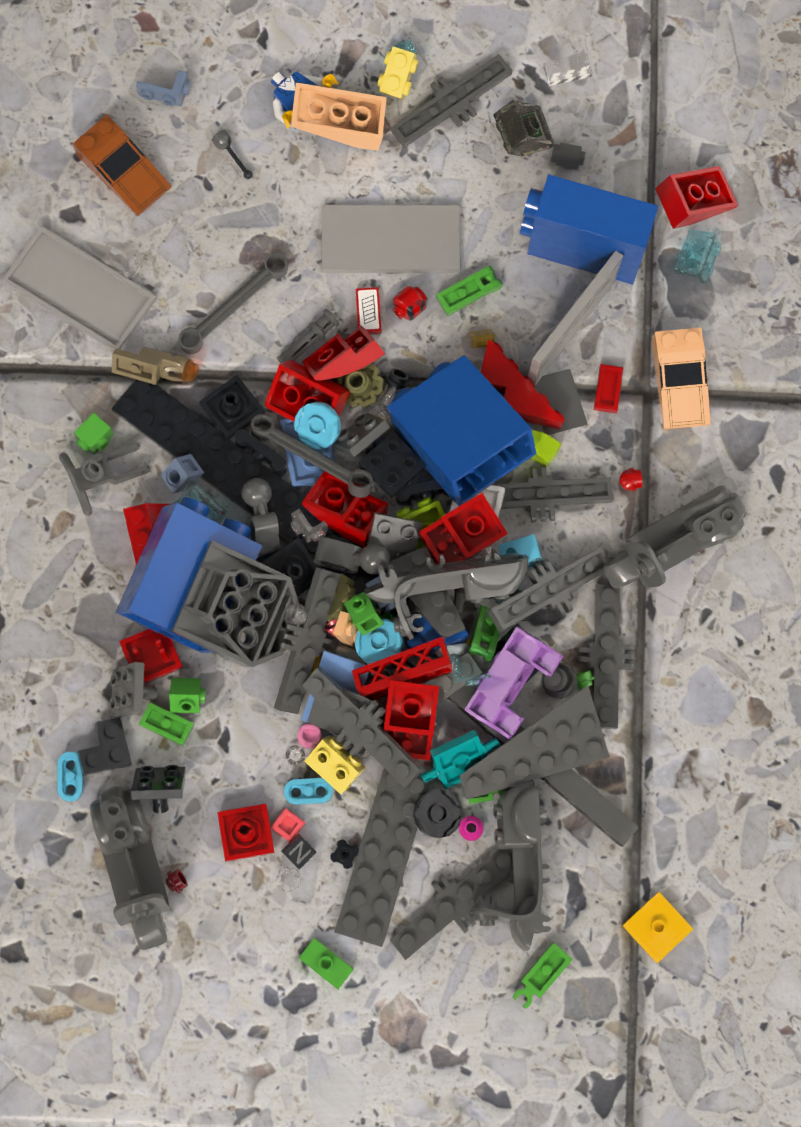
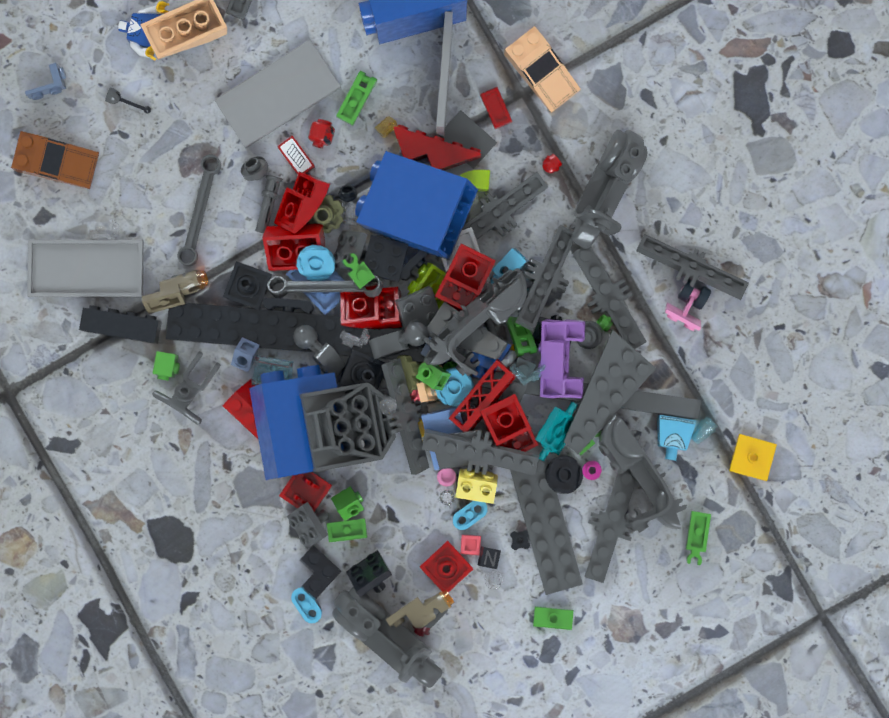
camera: 25 degrees left, 10 degrees up
(75, 366) = (120, 325): none -> black brick
(185, 863) = (423, 614): none -> dark tan plate
(317, 295) = (254, 168): none -> dark grey plate
(355, 461) = (359, 272): none -> bright green plate
(585, 846) = (674, 434): none -> medium azure torso
(621, 862) = (703, 430): none -> clear light blue cone
(694, 701) = (698, 296): none -> bright pink plate
(717, 678) = (692, 267): none -> dark grey hinge

